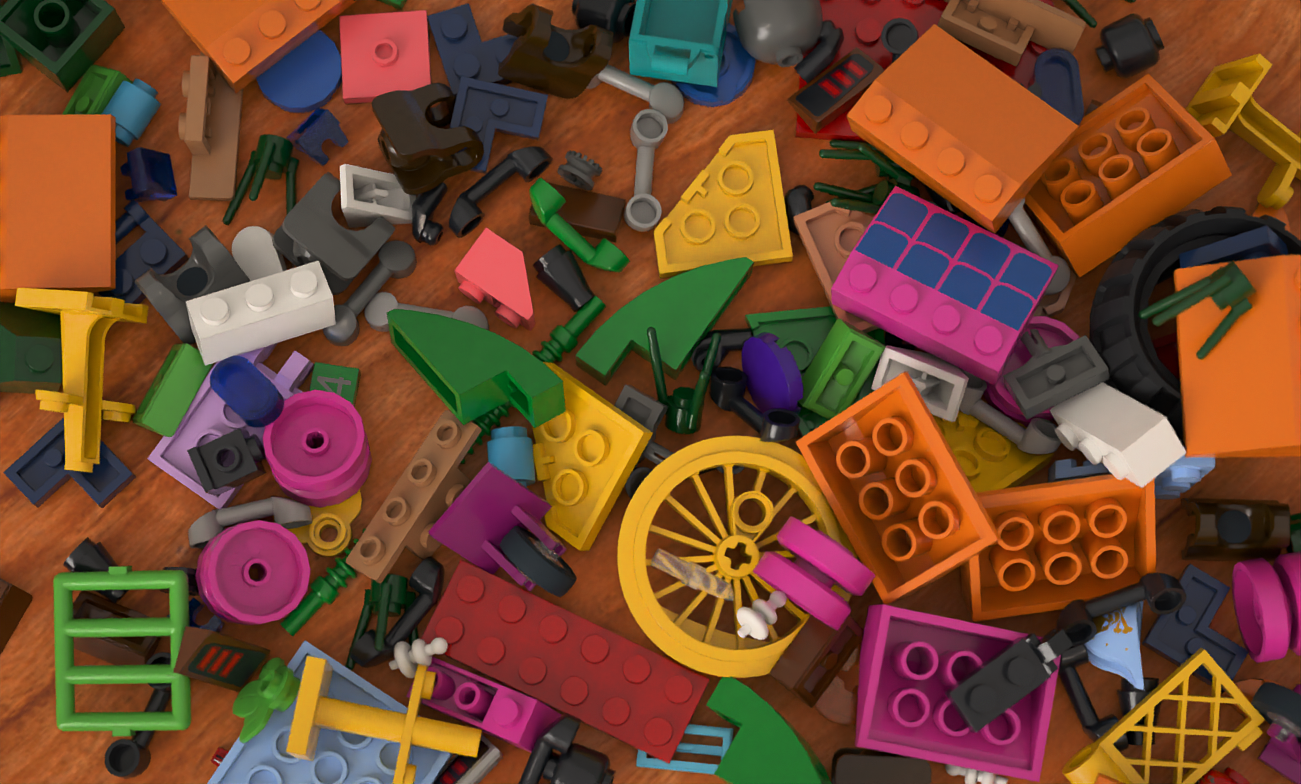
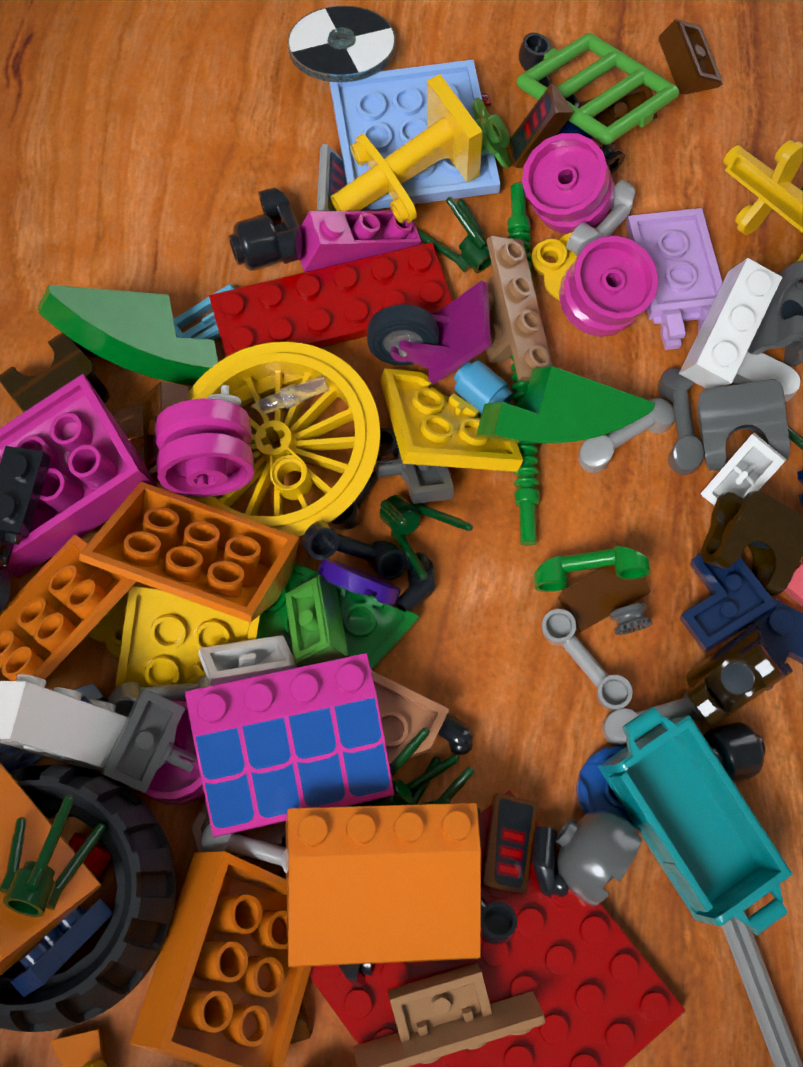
camera: 135 degrees right, 5 degrees down
(42, 471) = (716, 183): dark blue plate -> none
(93, 558) = (666, 128): black cone -> none
(172, 390) = (724, 243): bright green slope -> none
(246, 466) = (655, 227): black brick -> none
(247, 391) = (685, 274): clear blue tile -> none
(336, 379) = (638, 343): green tile -> none
(409, 657) = (425, 228): white hair -> none
(422, 215) = (697, 494): black arm -> none
(428, 582) = (458, 277): black bar -> none
(498, 275) = (606, 497): coral slope -> none
(527, 161) = (674, 521): black bar -> none
(564, 277) = (566, 536): black cone -> none
(678, 309) = (469, 564): green slope -> none
(729, 210) = (500, 684): yellow plate -> none
(1060, 83) = (338, 1005): clear blue tile -> none

